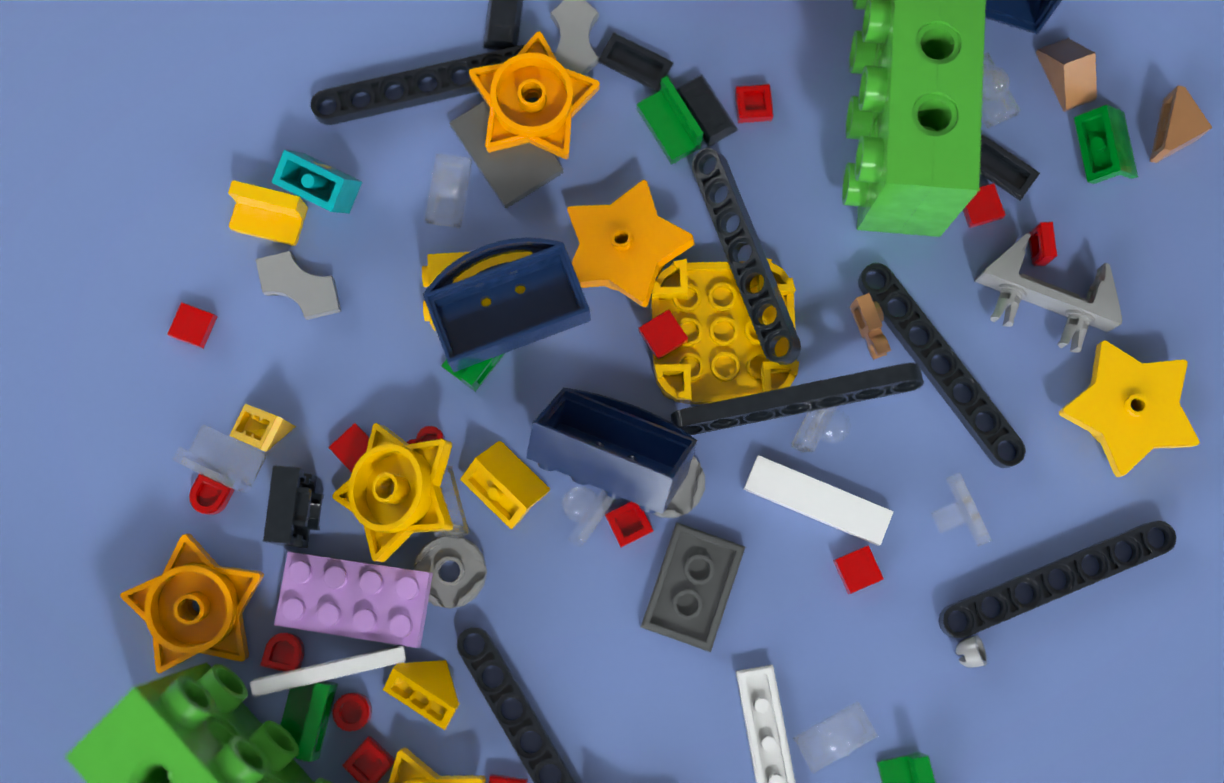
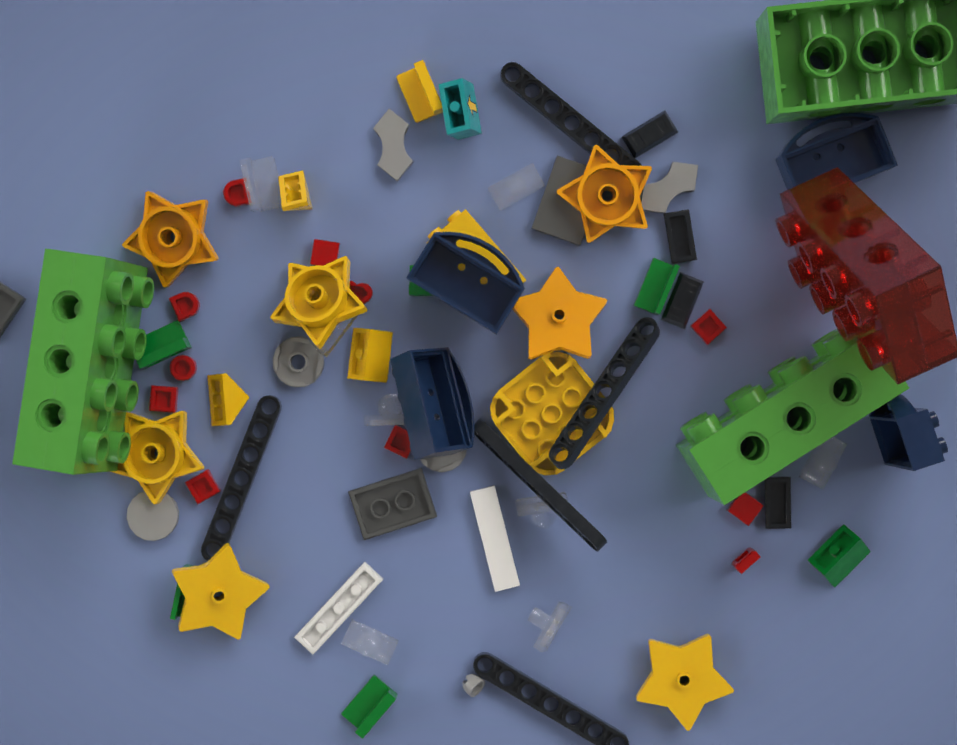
camera: 50 degrees right, 10 degrees up
(192, 325) = (323, 103): red tile -> none
(292, 507) = (265, 249): black brick -> none
(328, 670) = (194, 339): white tile -> none
(353, 599) = (242, 321): lavender plate -> none
(663, 334) = (522, 380): red tile -> none
(858, 569) = (472, 589): red tile -> none
(869, 322) = (623, 491): medium nougat plate -> none
(957, 371) = (618, 561): black beam -> none
(1070, 72) = (871, 501): medium nougat slope -> none
(1098, 310) = (721, 610): light grey hose -> none
(1178, 125) = (884, 589): medium nougat slope -> none

